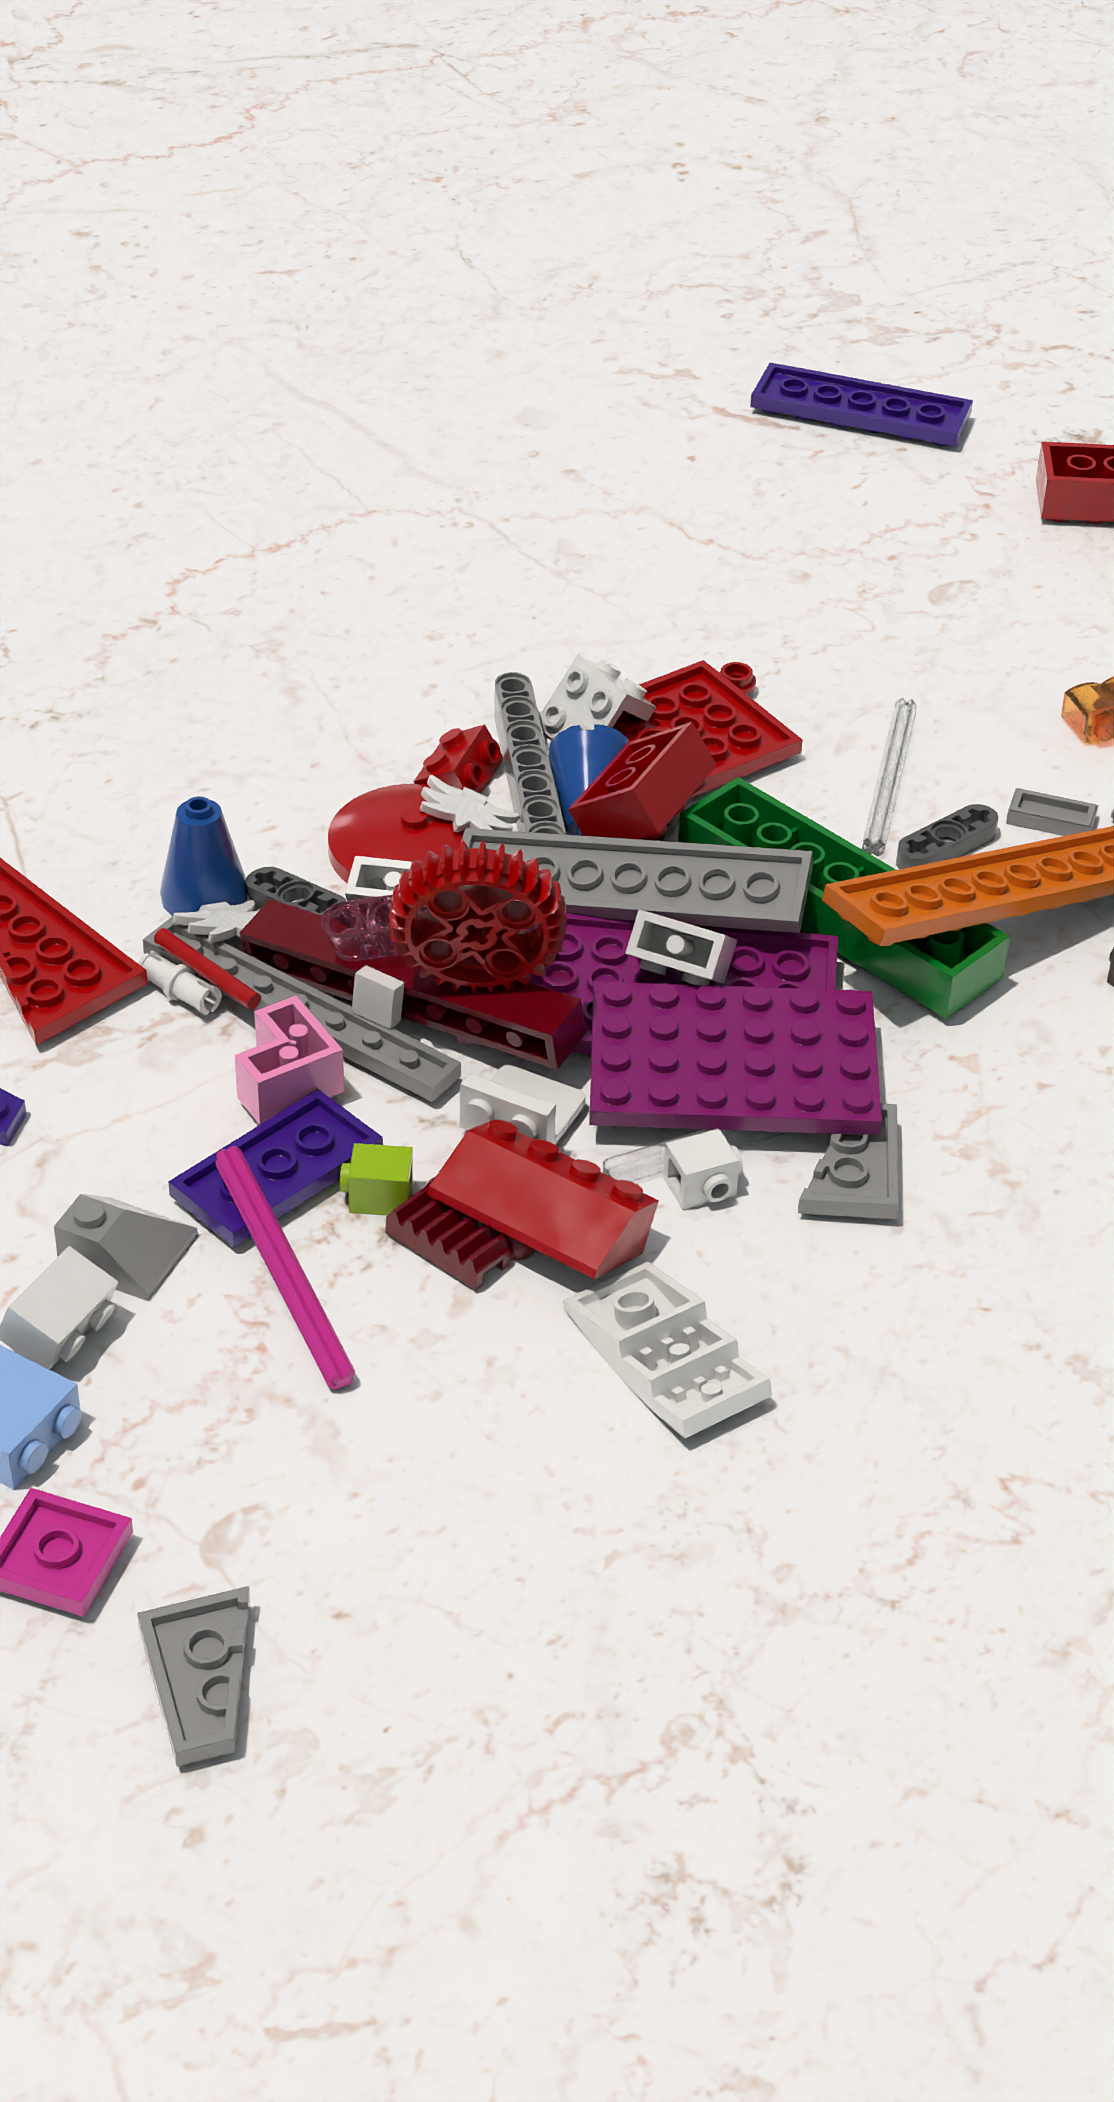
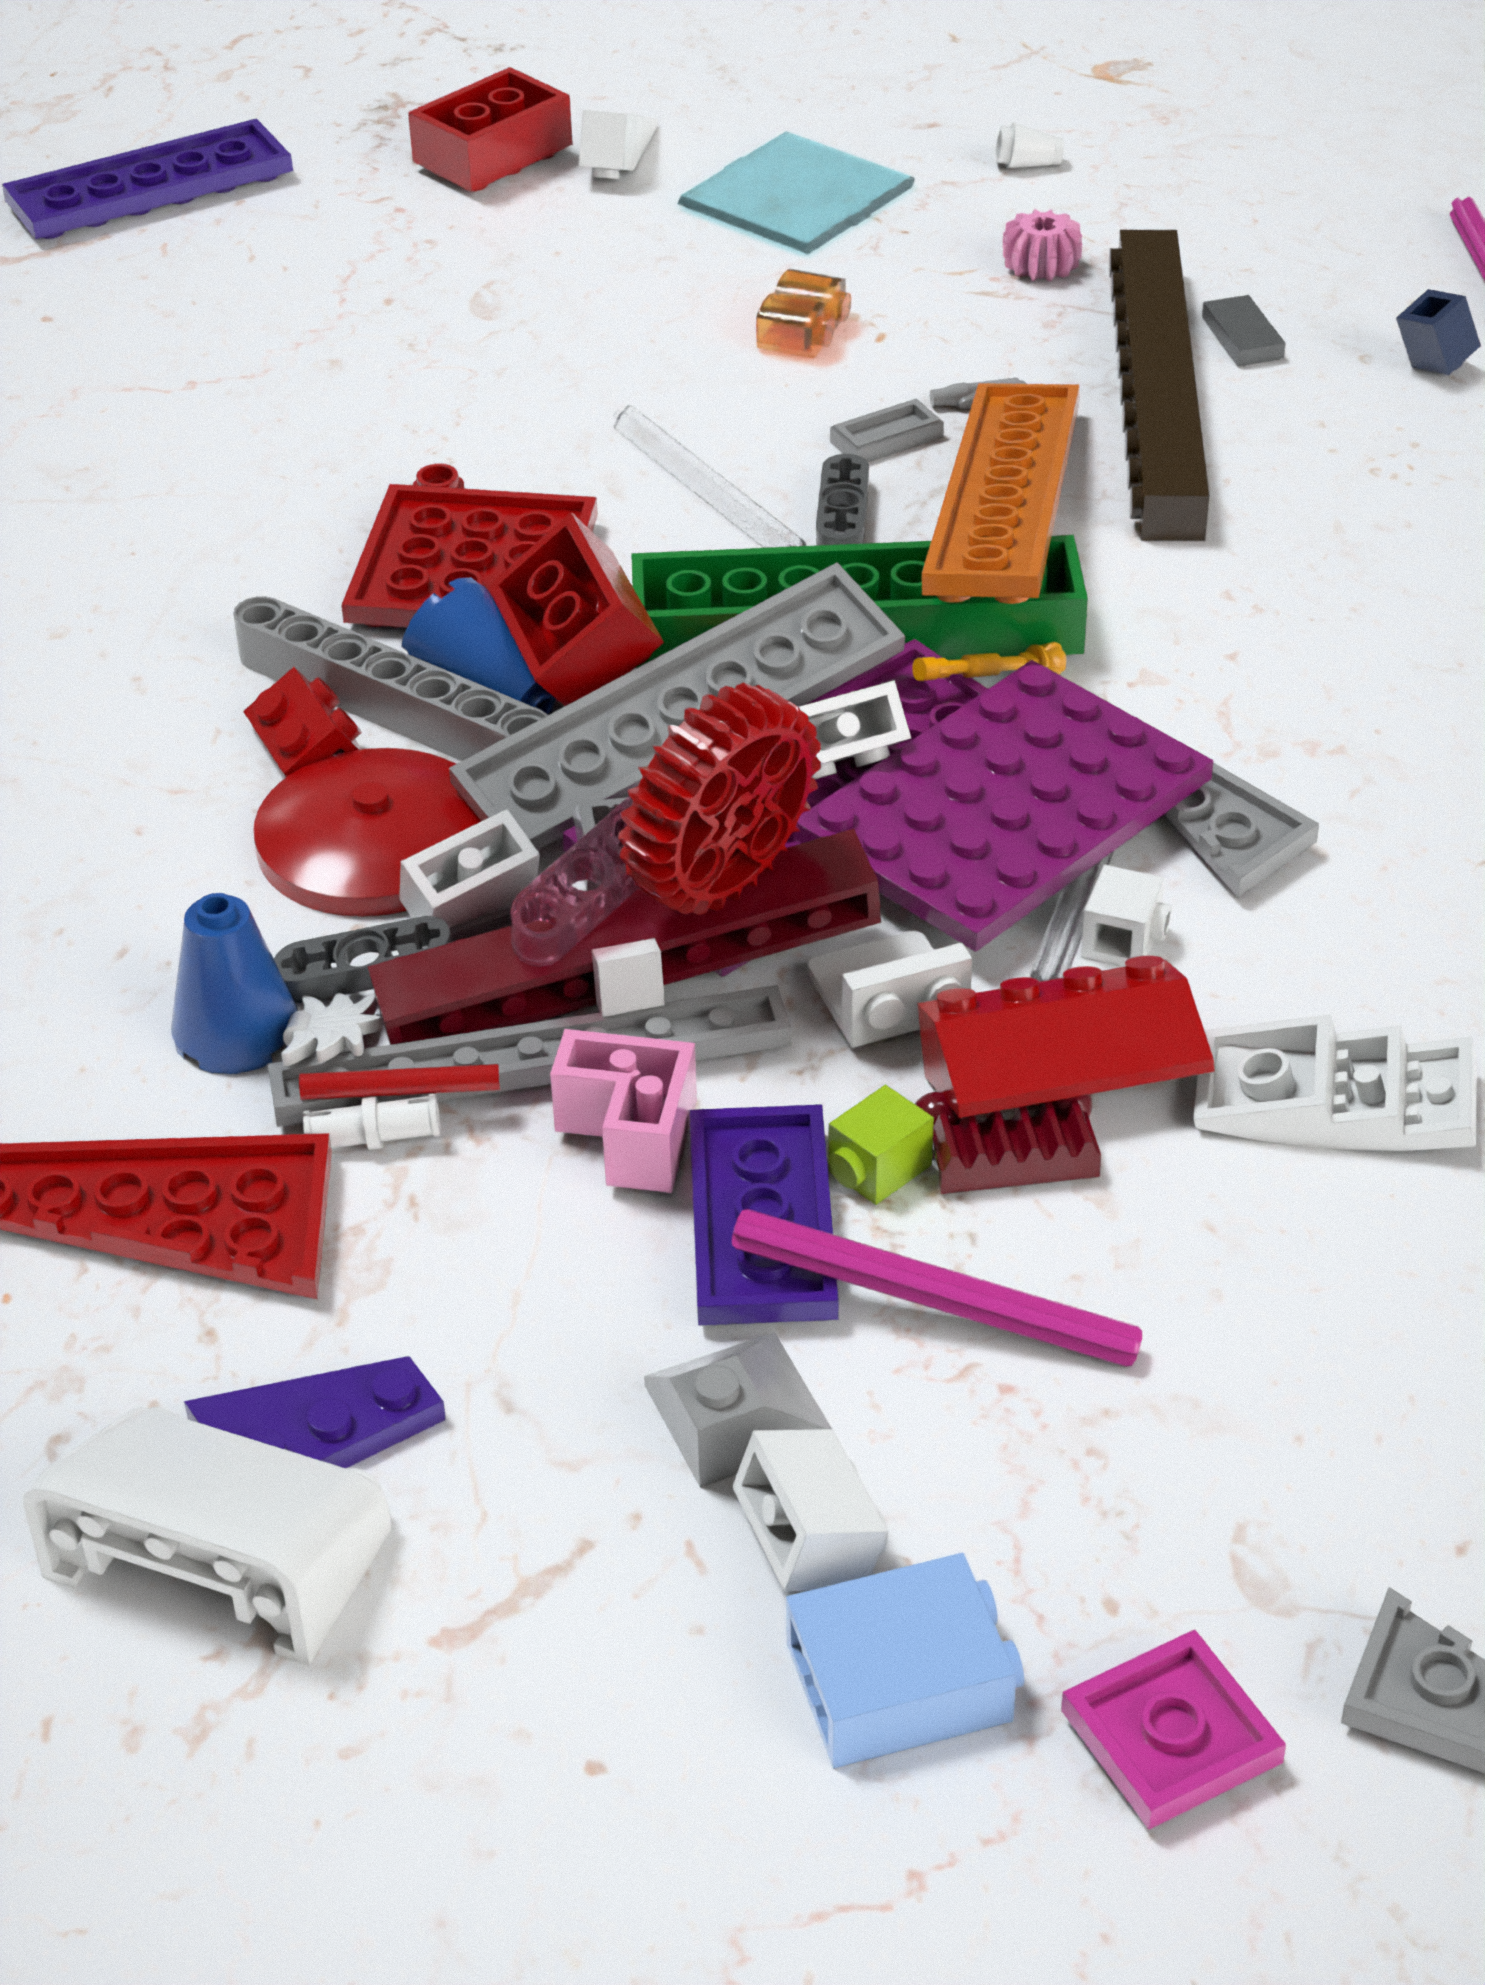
camera: 45 degrees left, 0 degrees up
(464, 807) = (400, 755): white piece -> none
(592, 696) = (366, 582): white bracket -> none
(909, 1005) = (989, 664): none -> light orange piece

